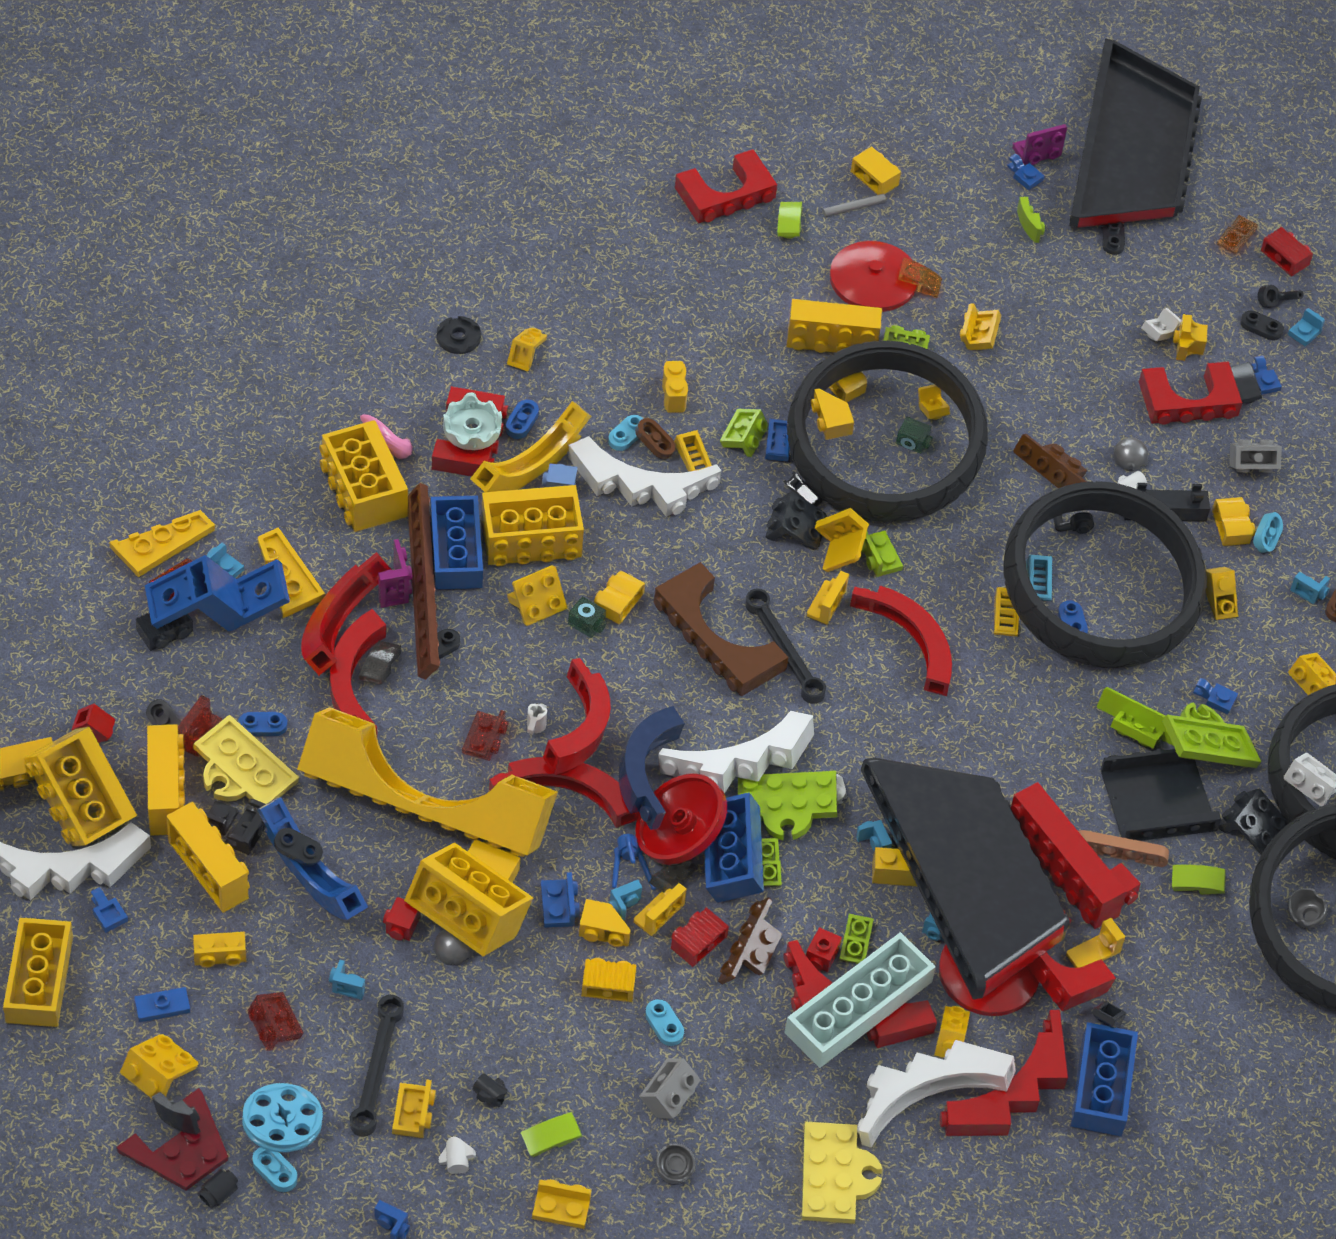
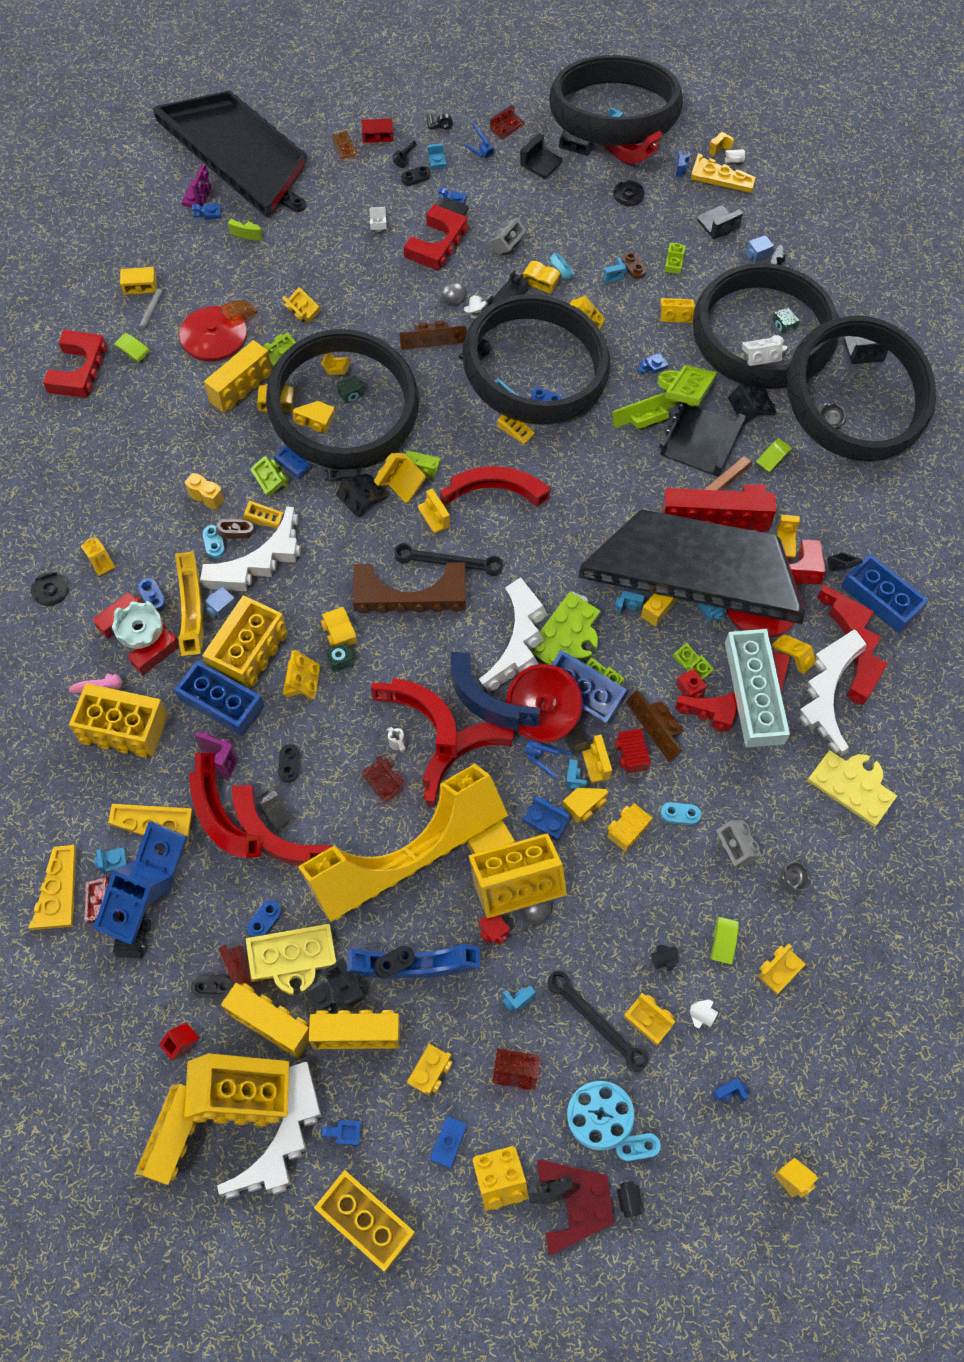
camera: 50 degrees left, 10 degrees up
(423, 582) = (241, 741): copper plate -> none
(1190, 338) = (398, 212): yellow brick -> none

